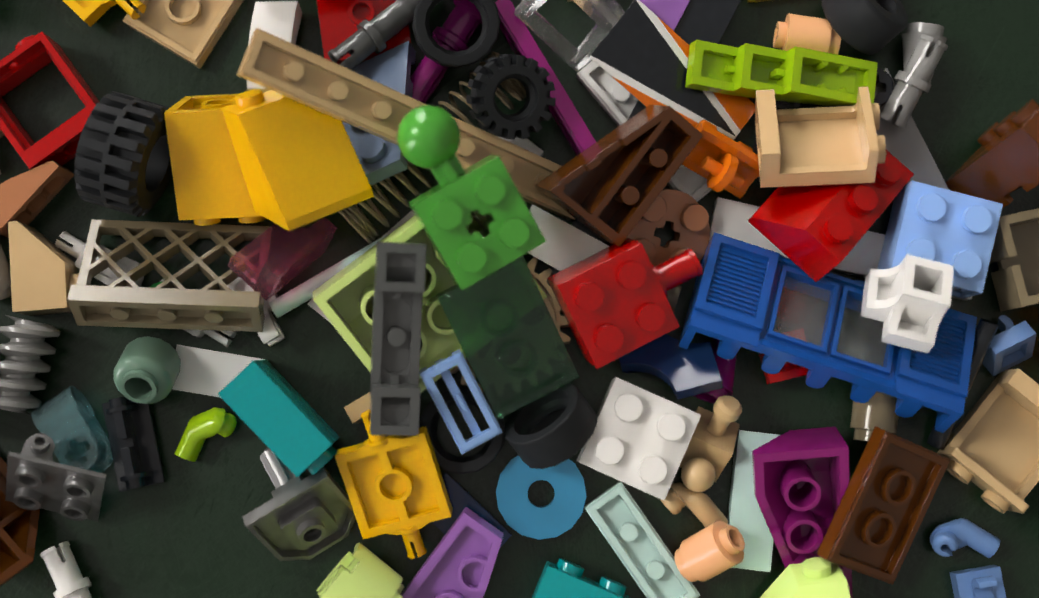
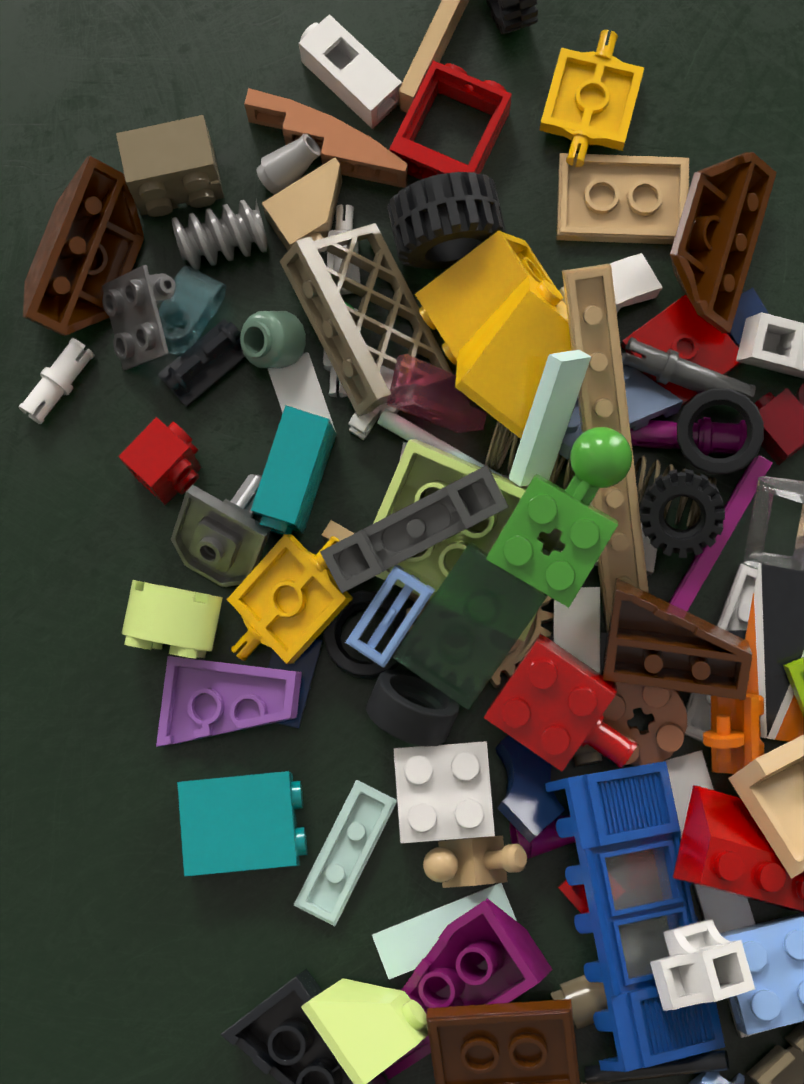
camera: 65 degrees right, 5 degrees down
(202, 427) = (249, 412): lime arm -> none
(203, 531) = (163, 460): none -> red brick
(362, 161) = (549, 416): none -> light aqua tile
(534, 520) = (321, 740): dark azure tile -> none
(697, 502) = (414, 882): tan arm -> none
(710, 552) = (377, 912): light nougat brick -> none

